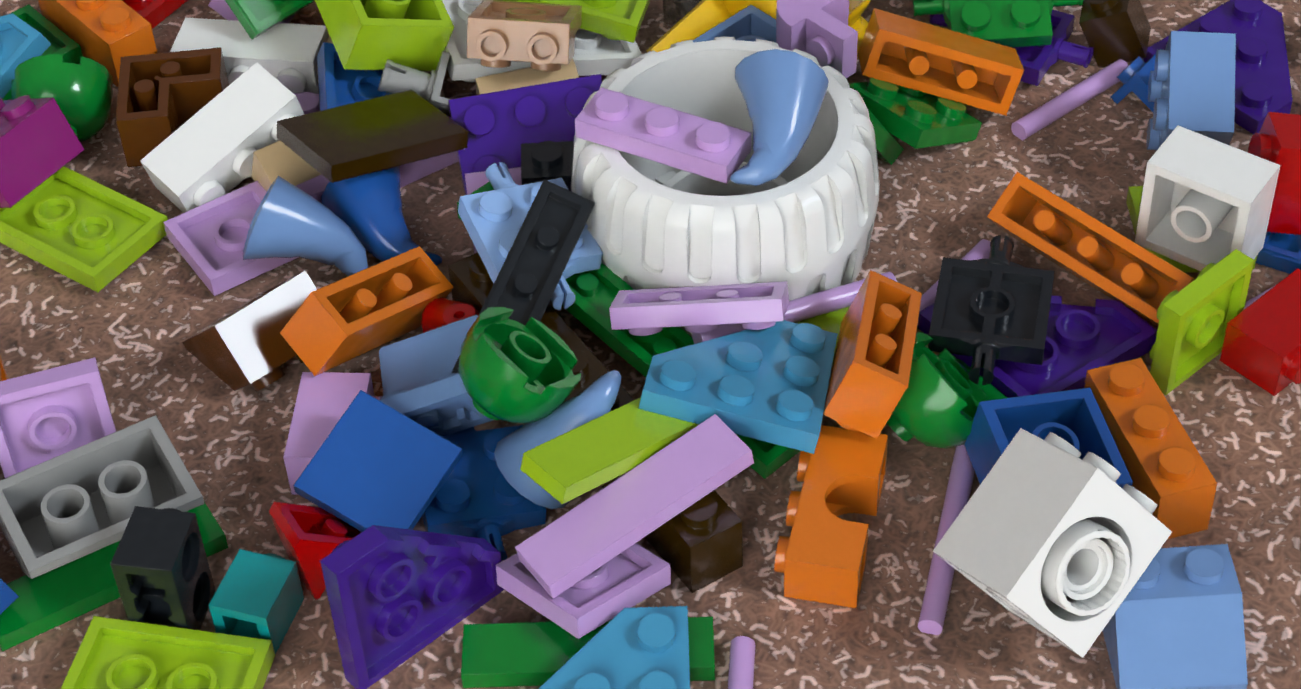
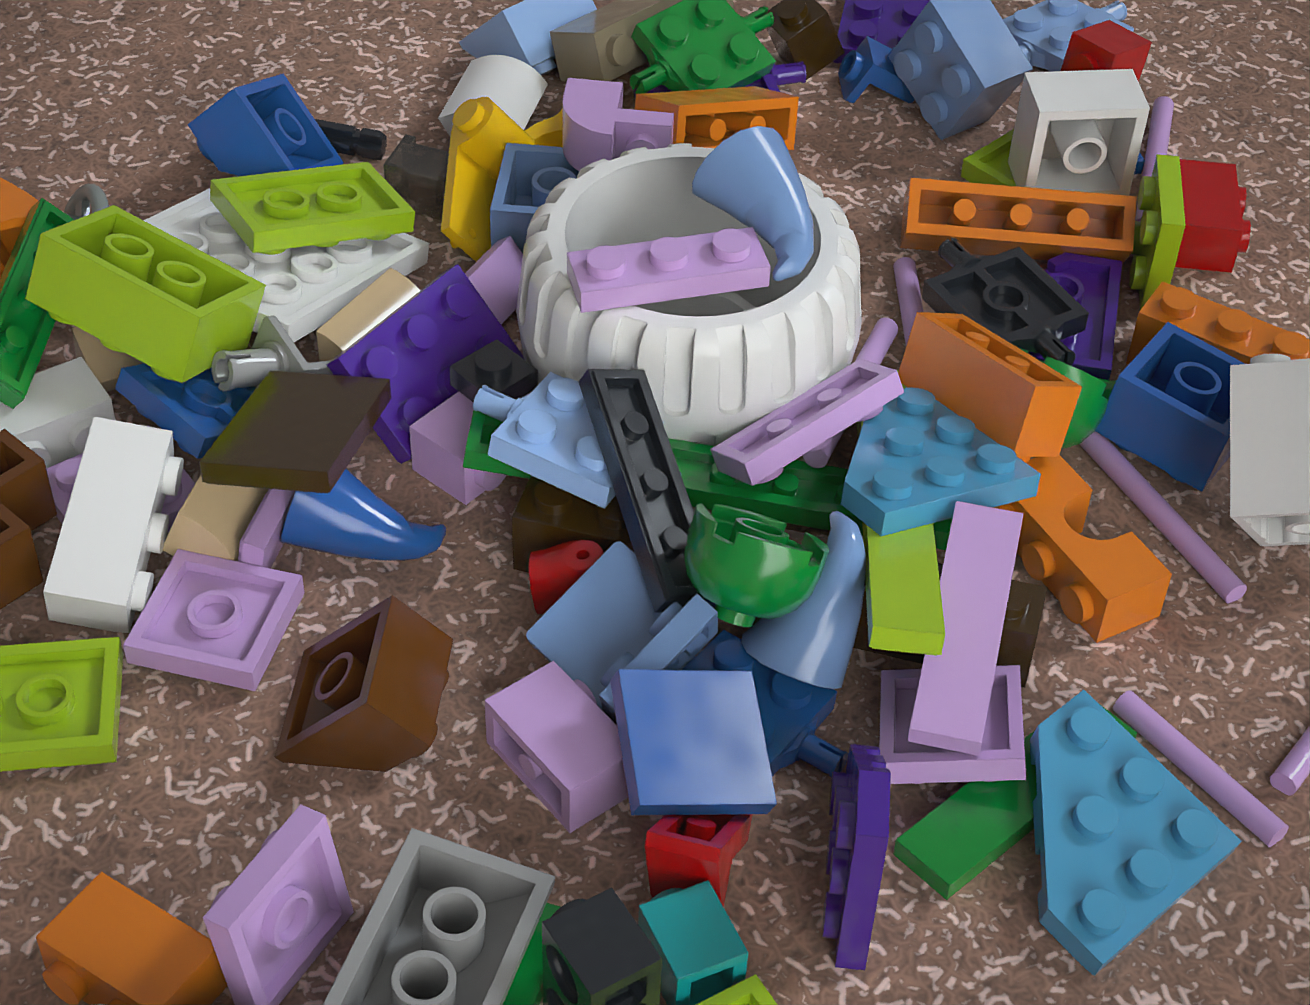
camera: 45 degrees left, 0 degrees up
(299, 226) = (297, 564): medium blue hat -> none
(364, 310) = (490, 604): orange brick -> none
(523, 33) = (337, 259): medium nougat plate -> none
(1068, 100) = (820, 115): lavender bar -> none

